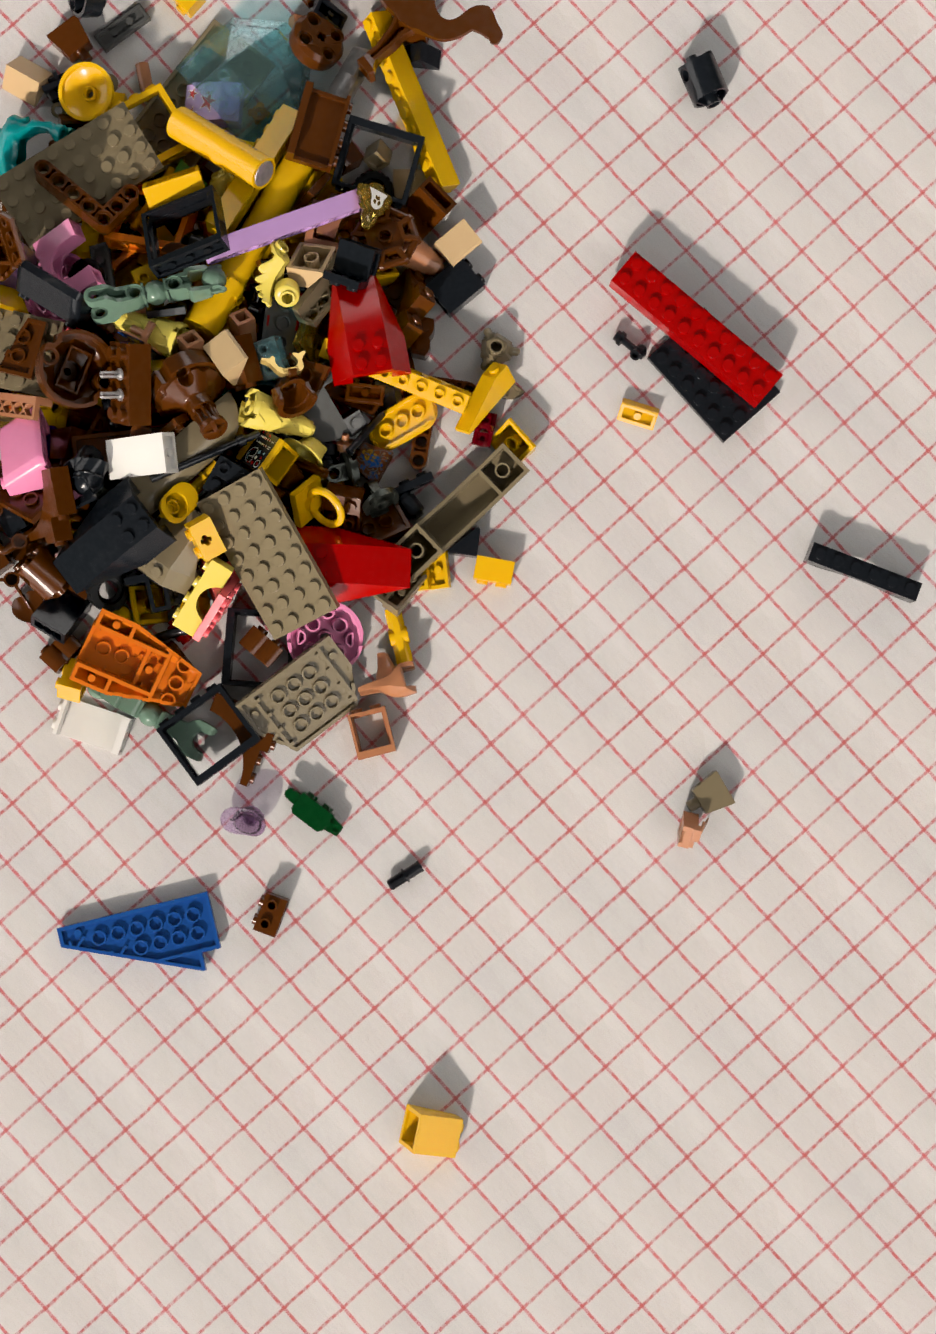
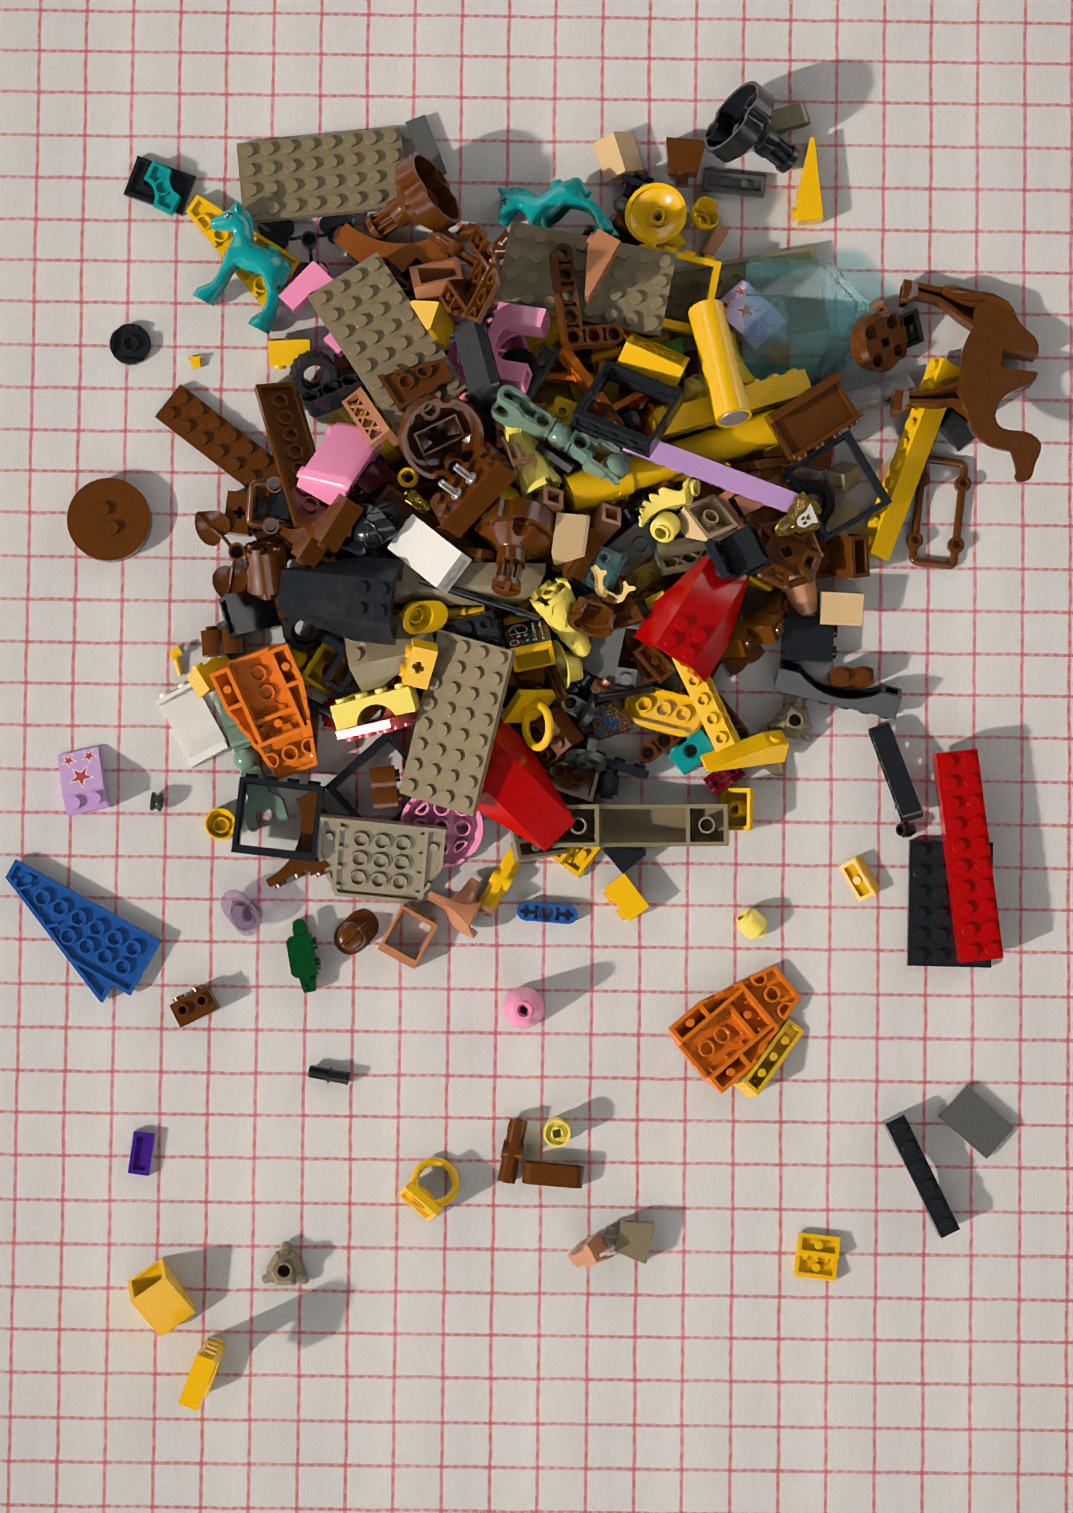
camera: 45 degrees right, 0 degrees up
(37, 689) = (175, 653): none -> yellow hand
(55, 833) = (83, 781): none -> lavender slope
(70, 145) = (600, 255): none -> nougat slope
(78, 418) = (406, 472): none -> yellow cone
(101, 429) = (417, 501): none -> clear yellow slope
(117, 800) = (156, 801): none -> pearl dark grey bush
(119, 64) = (704, 213): none -> yellow hair
(173, 775) = (220, 823): none -> yellow hat
(327, 1046) = (141, 1153): none -> dark purple tile
(334, 763) = (356, 932): none -> reddish brown piece
(448, 444) = (686, 763): none -> teal brick
(465, 626) = (552, 920): none -> blue beam
(486, 715) = (523, 997): none -> bright pink cone
(495, 132) = (955, 544): none -> reddish brown bar
(496, 1032) = (285, 1267): none -> dark tan rock
(506, 1155) = (202, 1373): none -> yellow arch
(511, 281) = (845, 676): none -> reddish brown brick
(541, 281) = (878, 700): none -> black arch
(544, 900) = (422, 1199): none -> yellow tile
(575, 811) = (512, 1150): none -> reddish brown piece
(593, 770) = (556, 1132): none -> light yellow wheel
(594, 510) = (751, 924): none -> light yellow head
(596, 319) = (895, 772): none -> black beam
(617, 801) = (552, 1174): none -> reddish brown beam
(646, 589) = (733, 1027): none -> orange wedge
(690, 592) = (769, 1061): none -> yellow slope
(844, 692) = (816, 1256): none -> yellow slope
(865, 503) = (976, 1121): none -> dark grey tile

